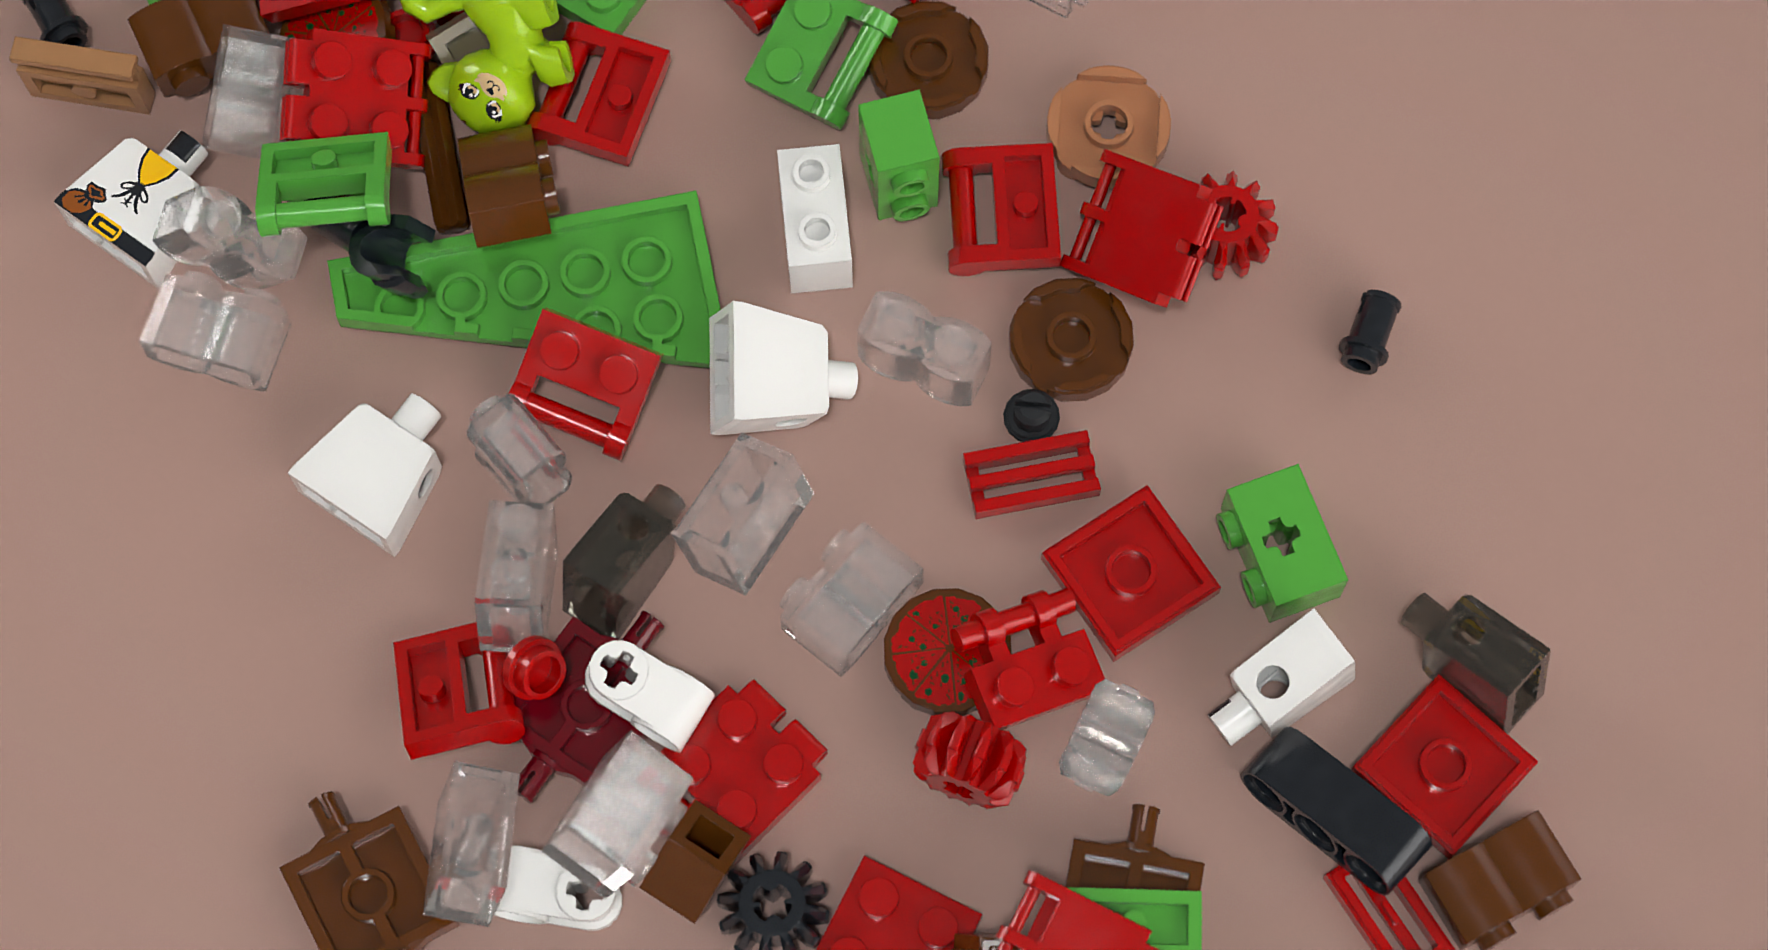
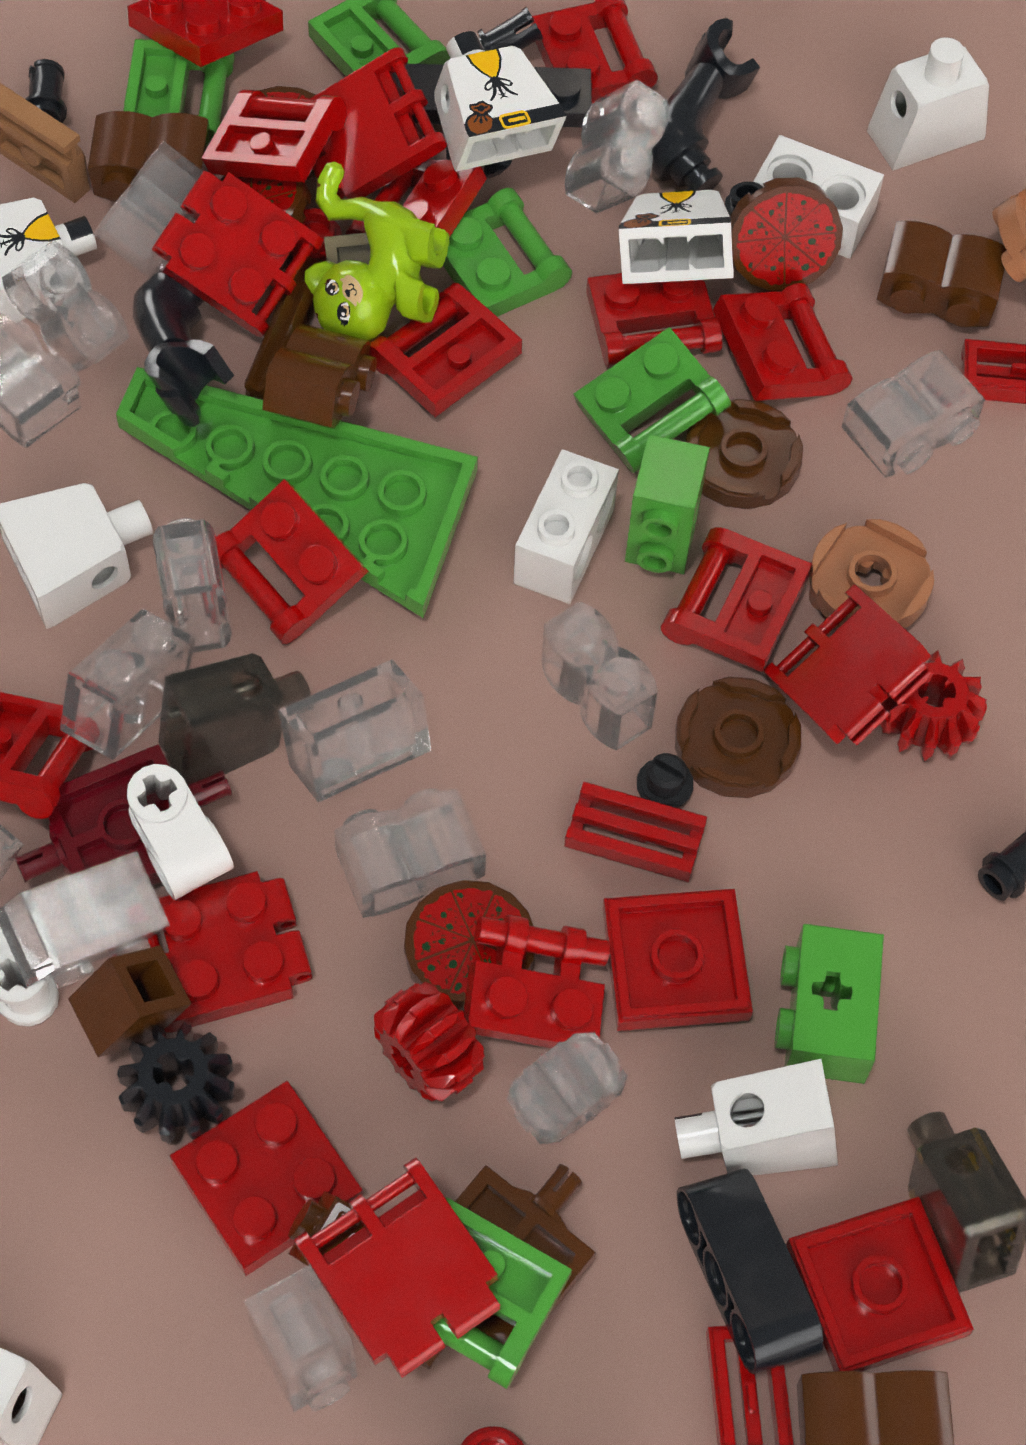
camera: 25 degrees right, 10 degrees down
(324, 169) = (161, 290): bright green plate -> none
(534, 668) = (91, 762): red plate -> none
(771, 371) = (452, 627): white torso -> none

